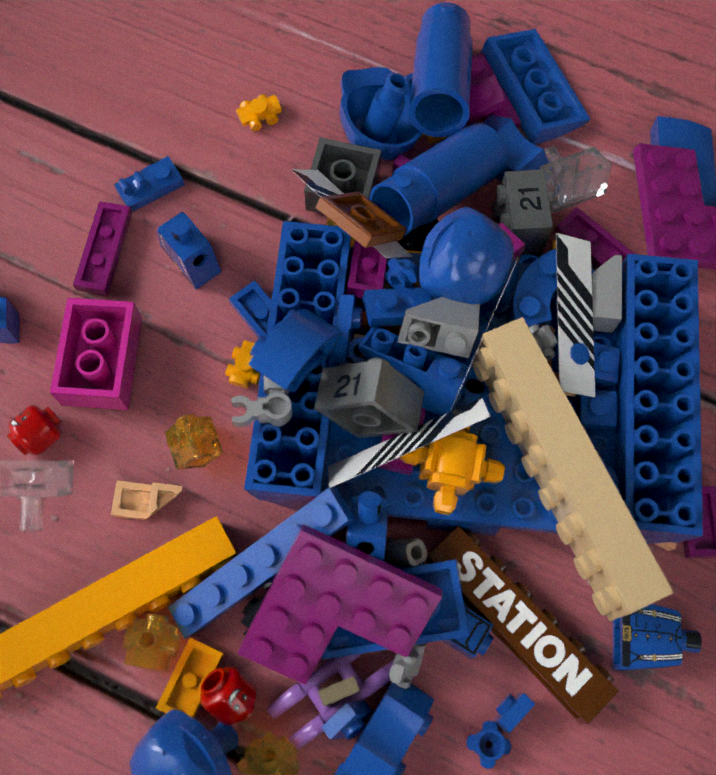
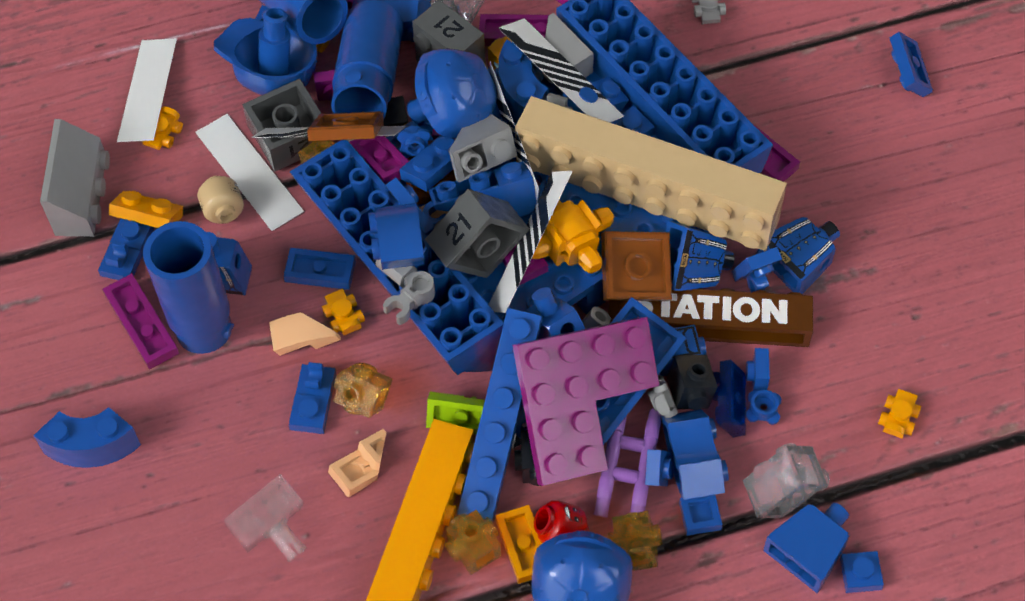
camera: 40 degrees left, 10 degrees down
(34, 430) = (228, 483): red head -> none
(96, 354) = (223, 391): dark pink brick -> none
(123, 248) = (189, 286): none -> blue piece
(155, 100) = (74, 180): none -> light grey slope
(159, 414) = (312, 398): none -> blue plate
(187, 166) = (144, 209): none -> light orange plate
(200, 353) = (299, 331): none -> light nougat slope
(242, 200) = (220, 199): none -> tan head
(242, 520) = (454, 410): none -> lime plate
(275, 73) = (147, 90): none -> white sticker
(288, 189) = (250, 172): none -> white sticker
(339, 691) = (635, 448): dark tan tile -> none
(445, 671) = (691, 382): none -> black brick
(463, 718) = (731, 398): none -> clear blue plate
(486, 535) = (636, 266): none -> dark orange tile
(542, 566) = (696, 257): none -> blue torso
(592, 624) = (756, 268): none -> blue plate

